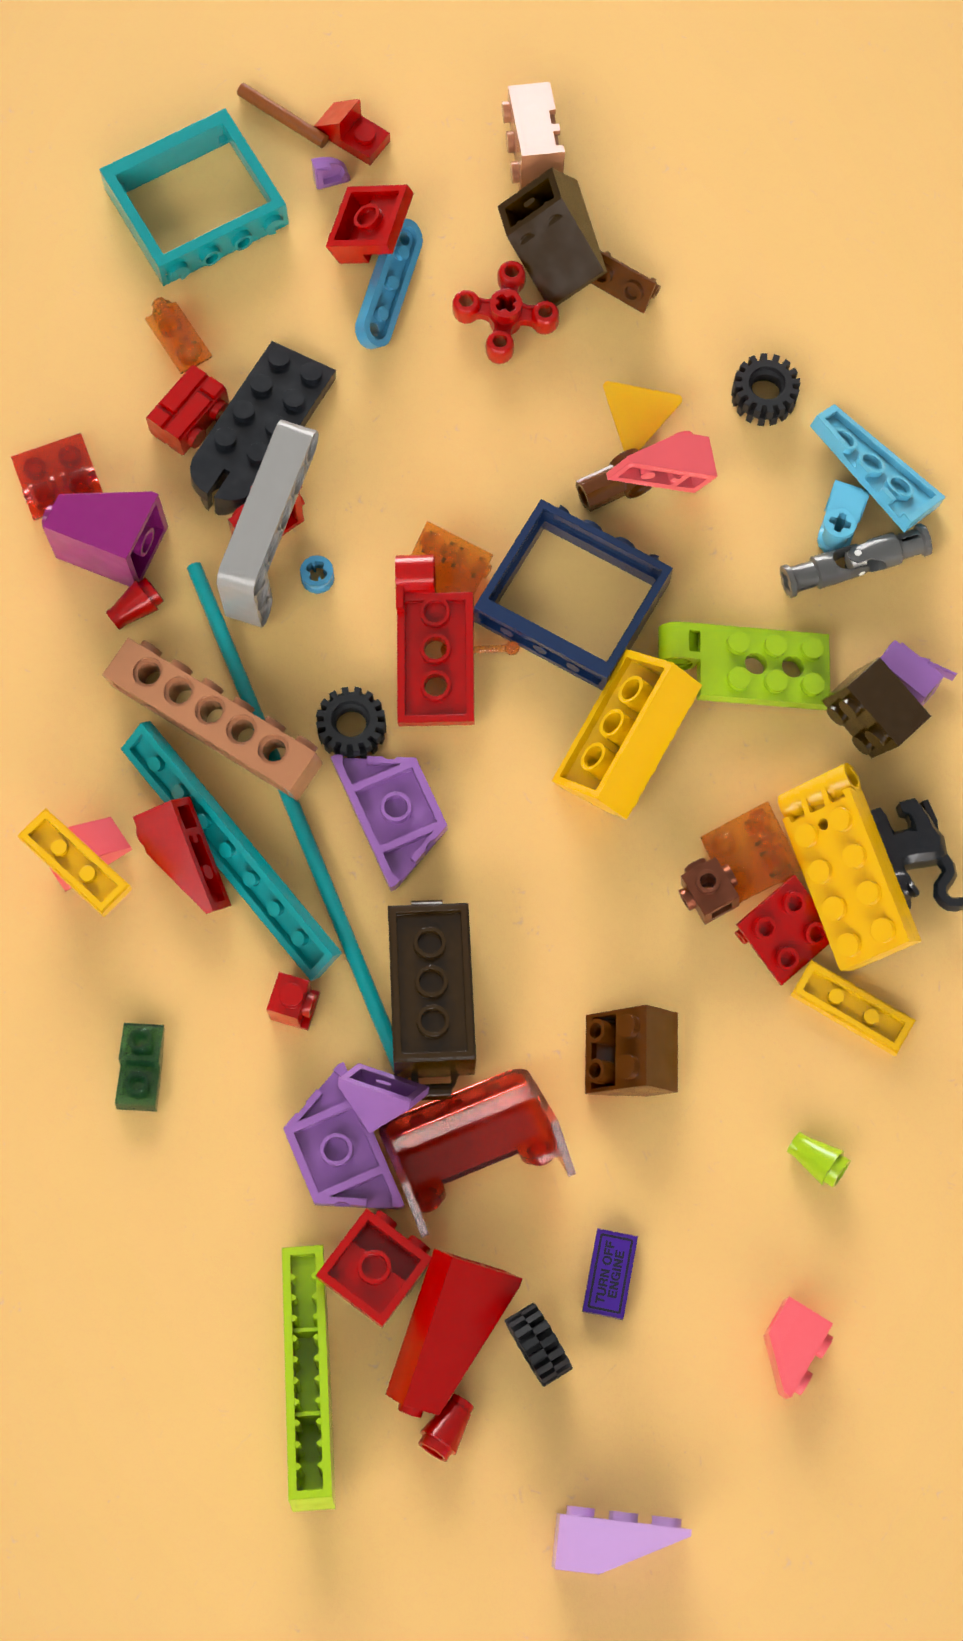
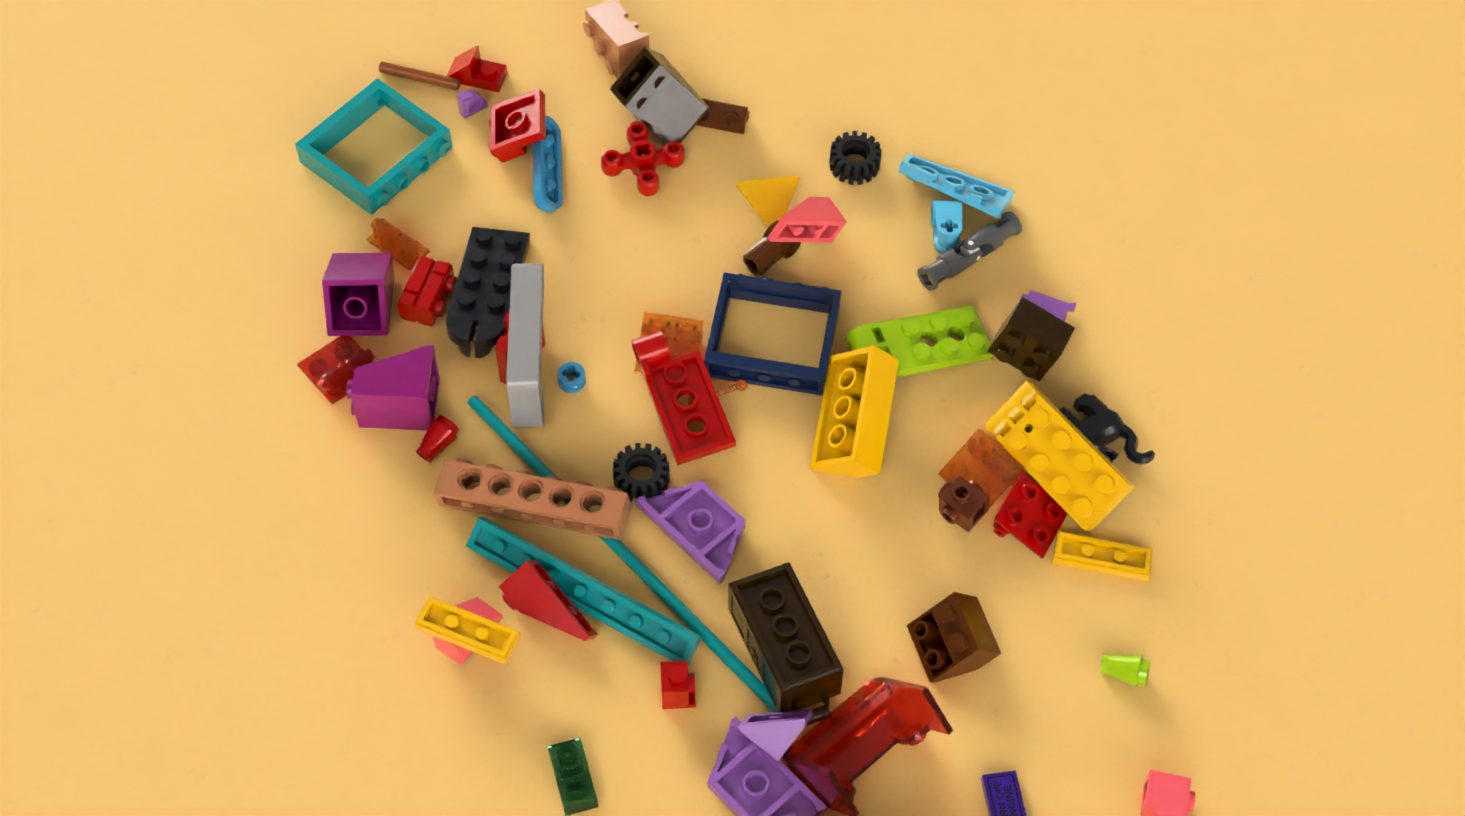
camera: 20 degrees left, 15 degrees down
(107, 389) = (358, 294): none -> magenta slope

